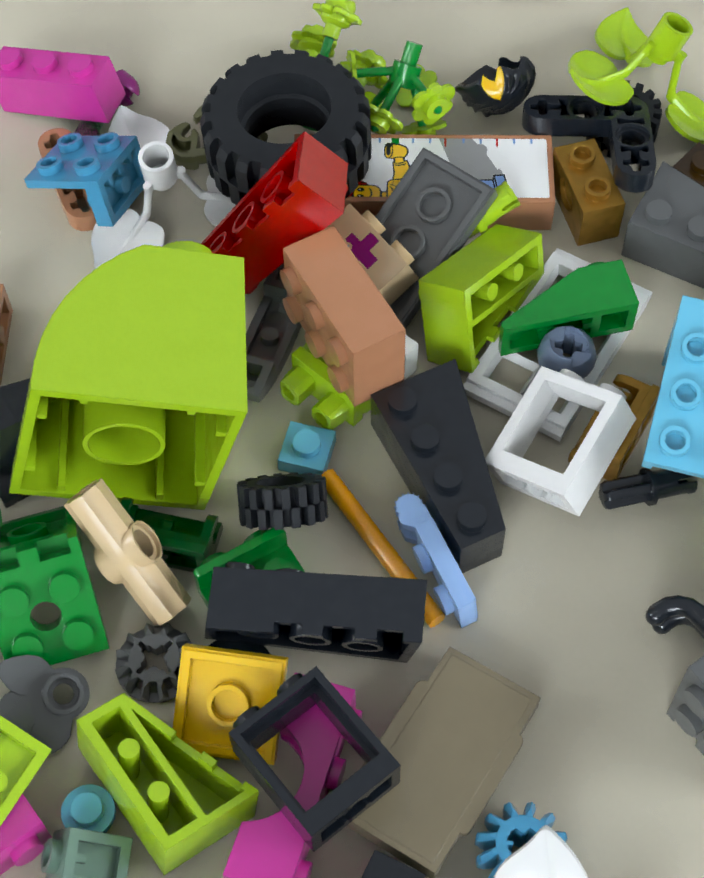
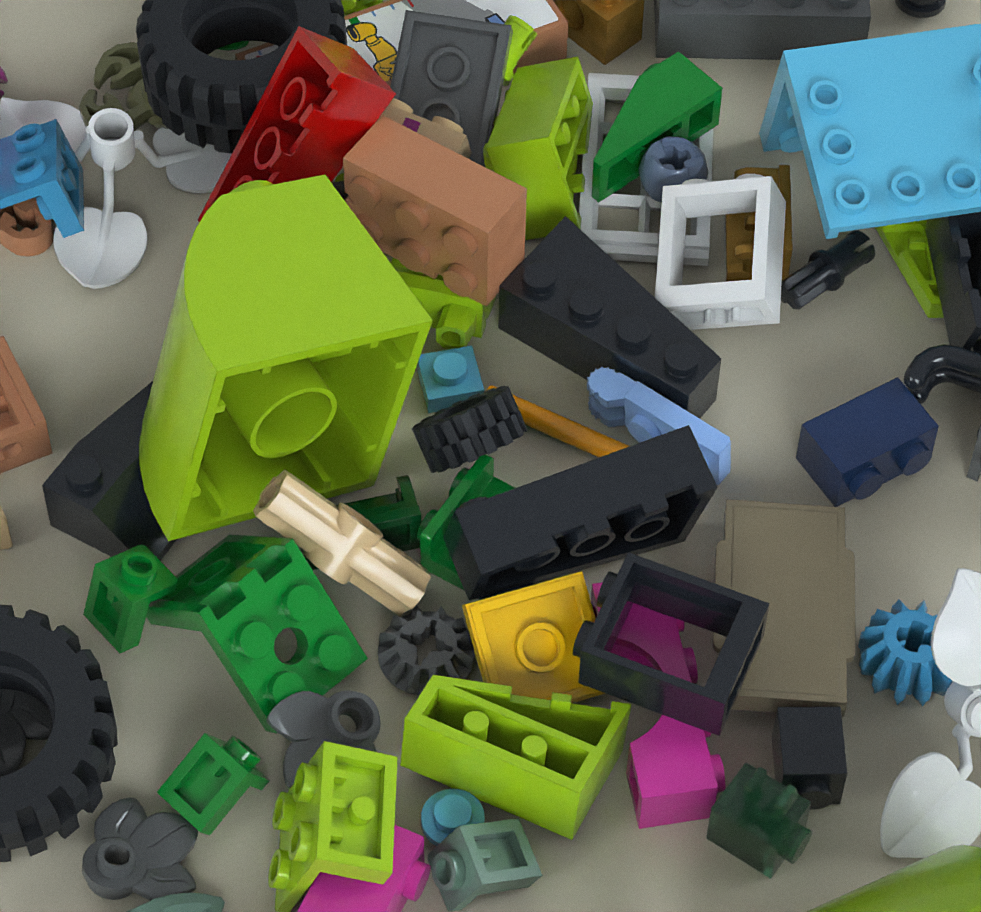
camera: 30 degrees left, 5 degrees down
(593, 649) = (867, 442): none -> dark blue brick

